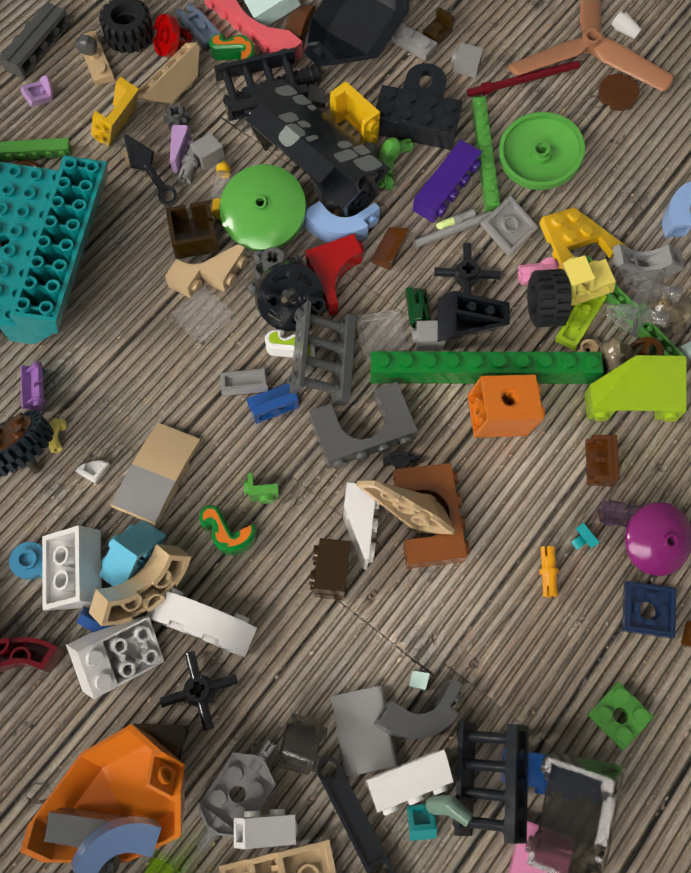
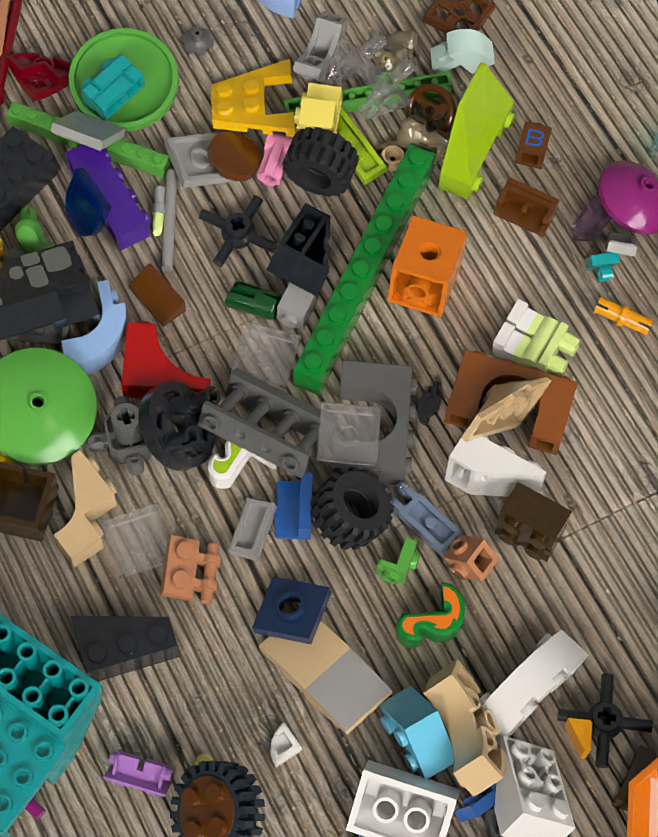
camera: 65 degrees left, 5 degrees down
(118, 334) = (123, 643): none -> black wedge
(178, 676) = (580, 735): none -> light orange slope
(182, 442) = (296, 626): none -> dark blue piece
(190, 348) = (180, 570): none -> nougat plate
(284, 537) = (470, 558): none -> nougat brick
(301, 443) = (365, 494): none -> black tyre
(303, 494) = (425, 519): none -> sand blue hinge
(338, 408) = (348, 434): none -> clear tile
(430, 168) = (85, 204): none -> clear blue tile
(484, 143) = (87, 130): none -> light grey tile
(489, 512) = (534, 340): none -> yellowish green hips
(516, 102) = (39, 75): none -> dark red brick
(524, 244) = (234, 156): none -> reddish brown tile
(527, 142) = (112, 86): none -> teal brick
(606, 186) = (197, 41): none -> flat silver plant
(608, 543) = (621, 243): none -> light grey tile
(660, 443) = (533, 145): none -> reddish brown brick

